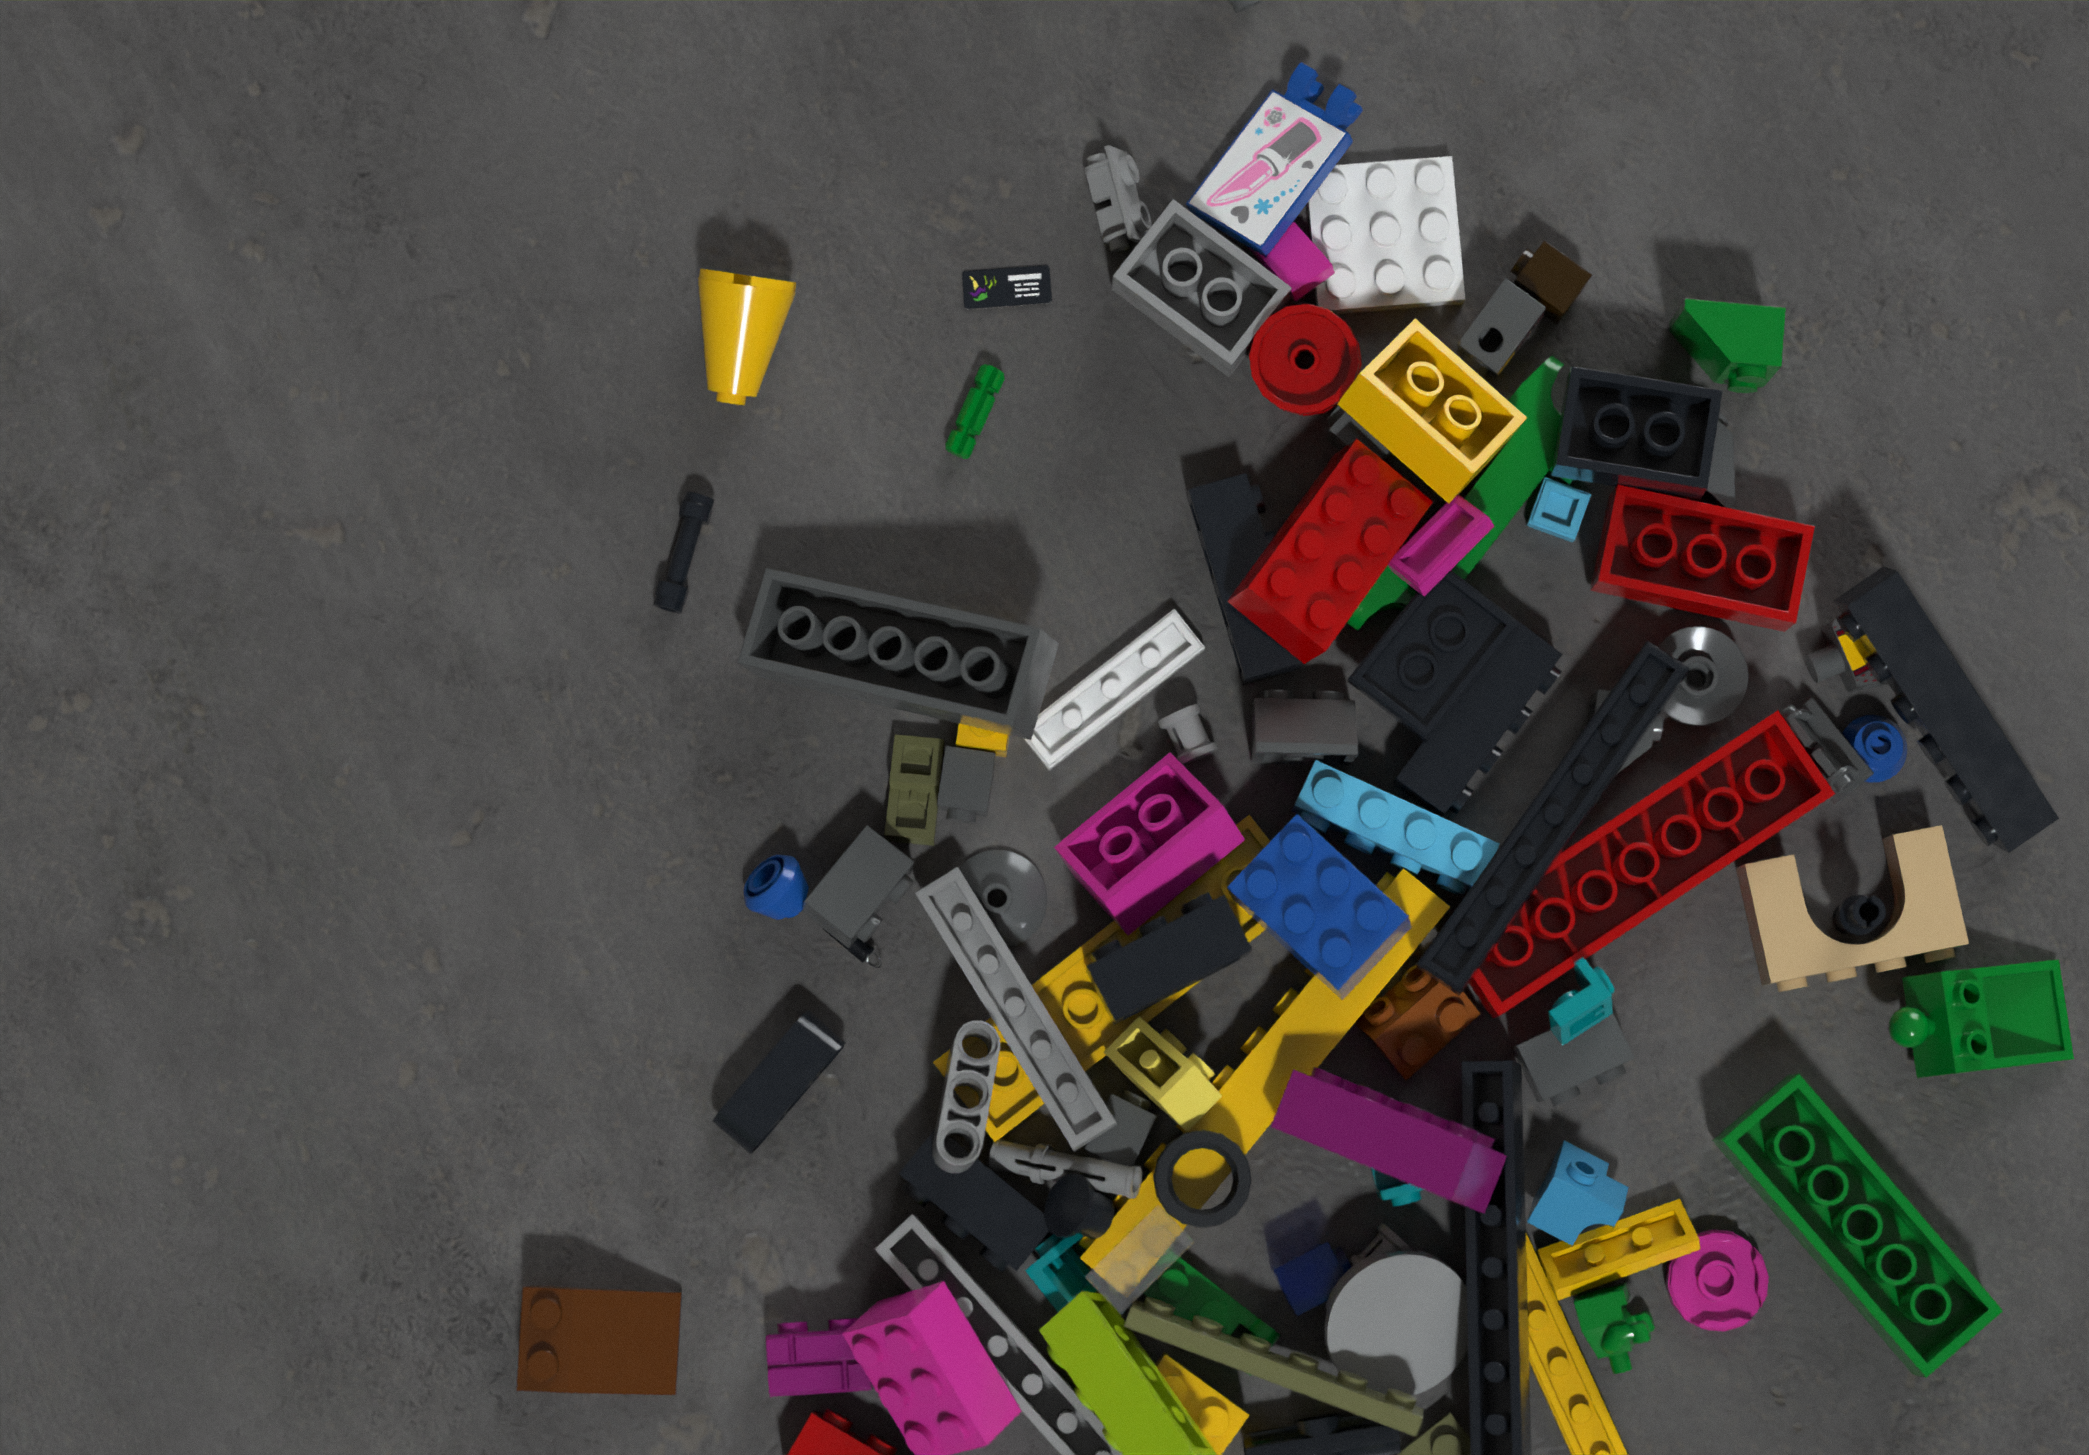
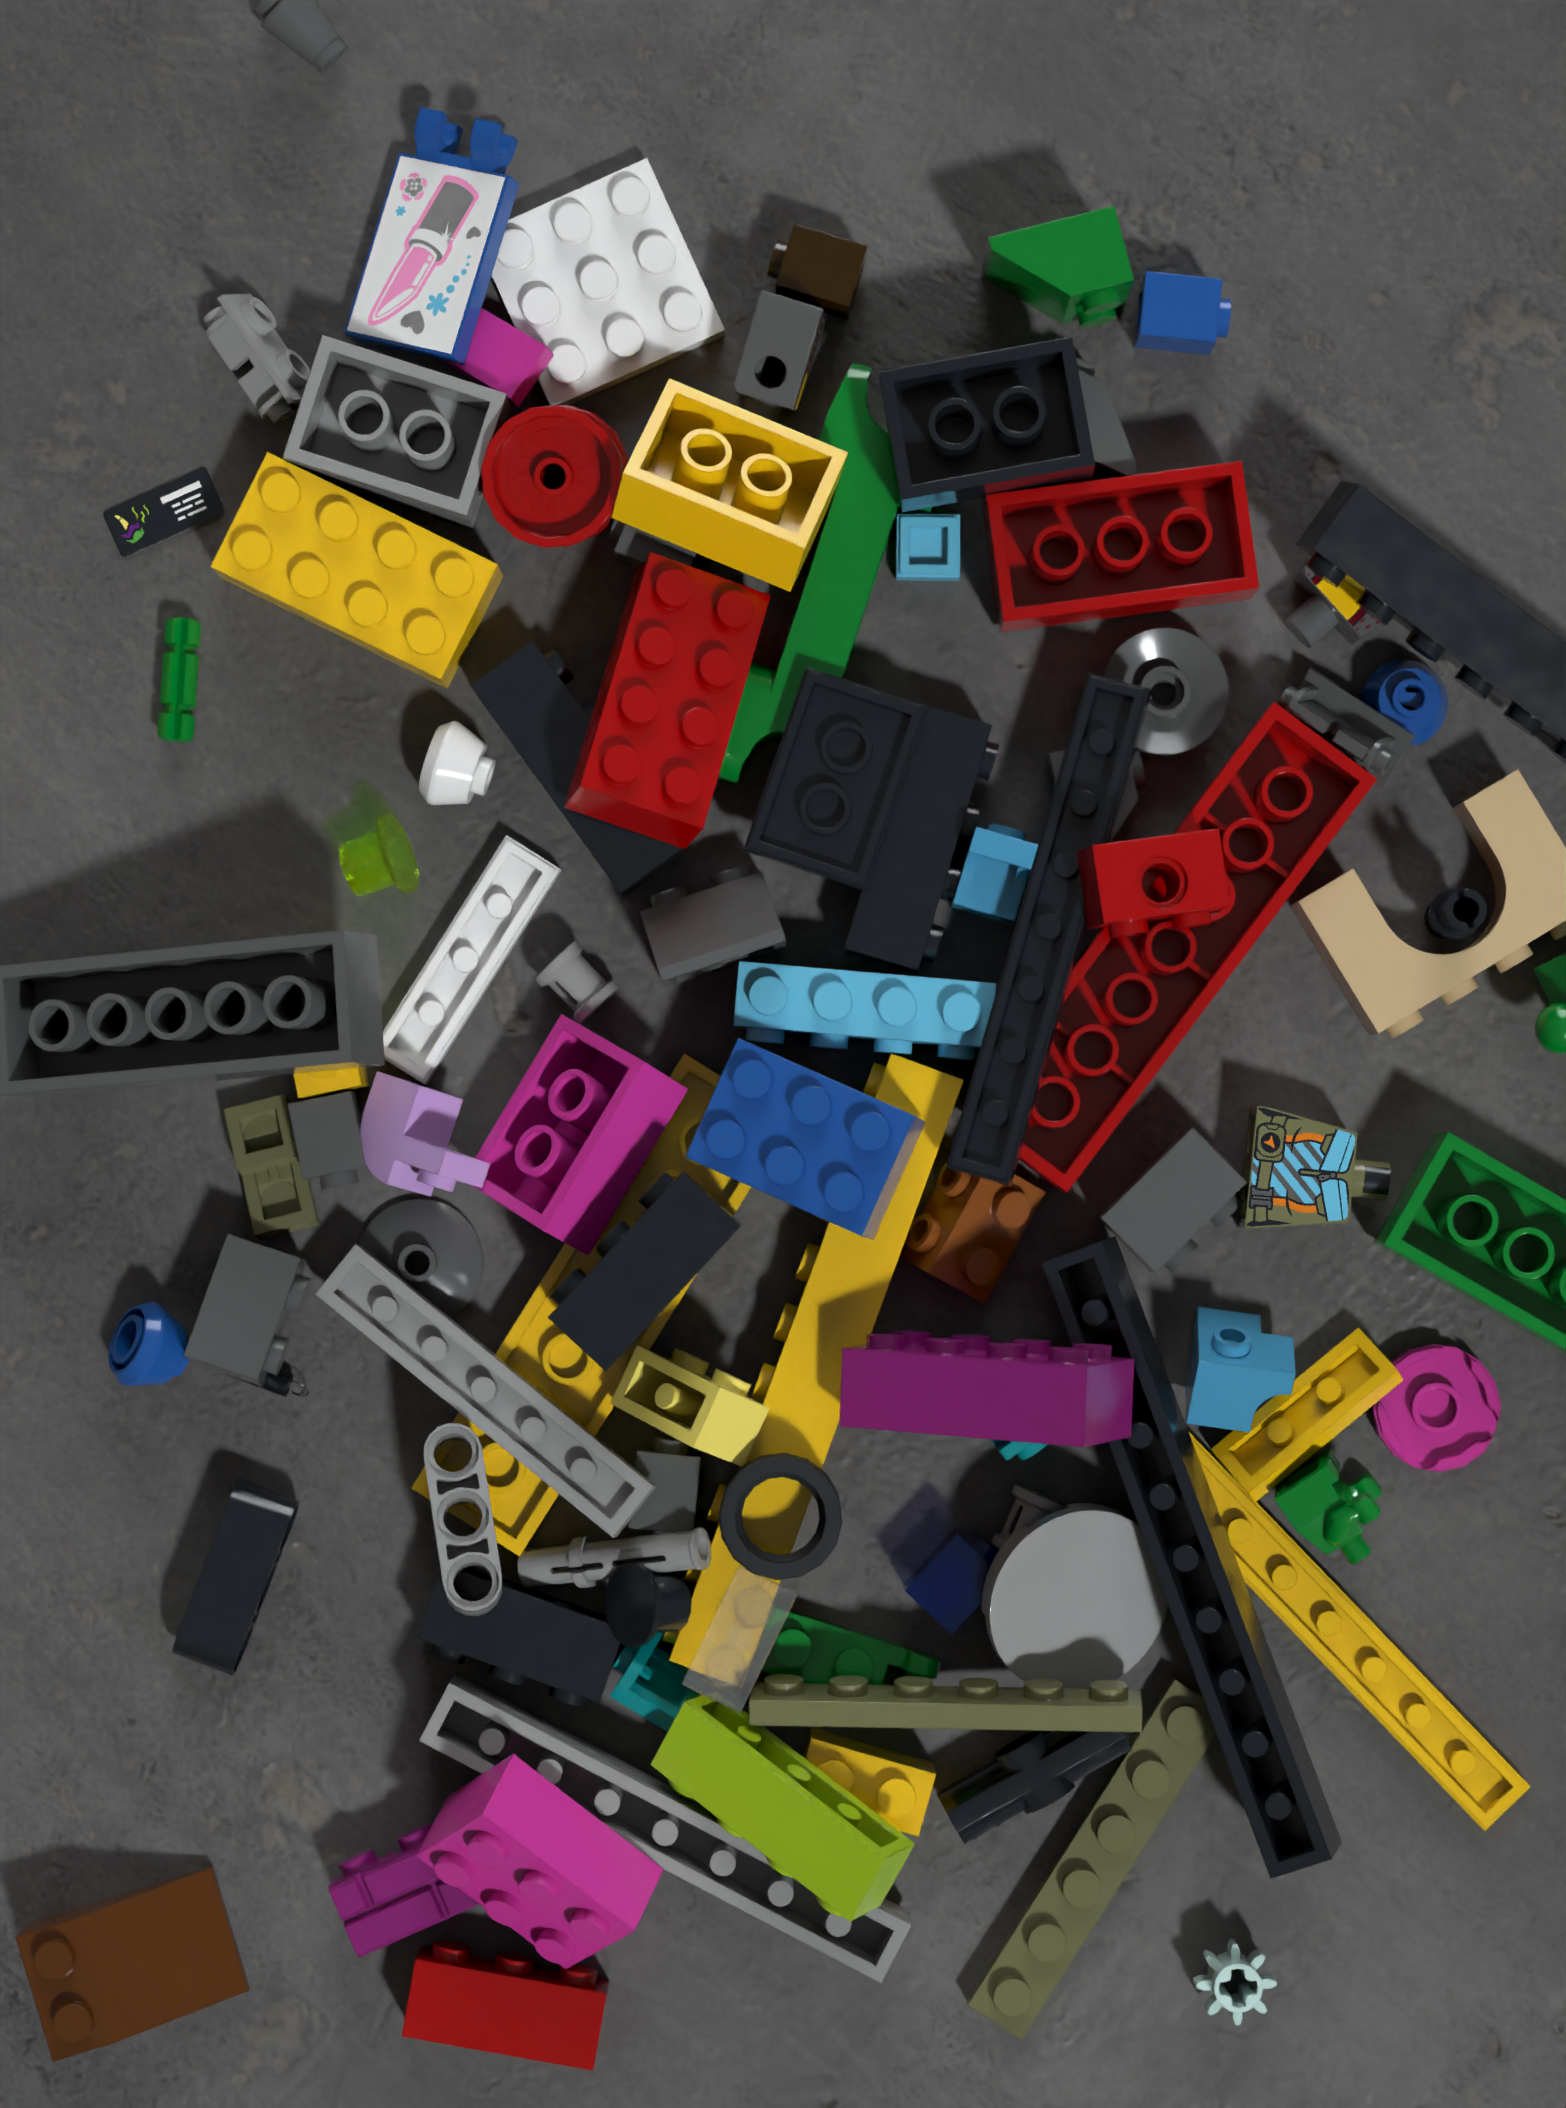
camera: 20 degrees left, 5 degrees up
(1024, 803) = (408, 1137): none -> lavender brick
(1075, 593) = (380, 859): none -> clear neon green piece
(1135, 378) = (357, 570): none -> yellow brick
(1155, 545) = (455, 766): none -> white cone
(1440, 544) = (797, 645): dark pink tile -> none
(1525, 764) = (995, 873): none -> dark azure brick
(1582, 1010) = (1161, 1151): teal bracket -> none
(1673, 801) = (1187, 861): none -> red brick
(1678, 1067) = (1303, 1172): none -> torso
(1805, 405) = (1181, 313): none -> blue brick

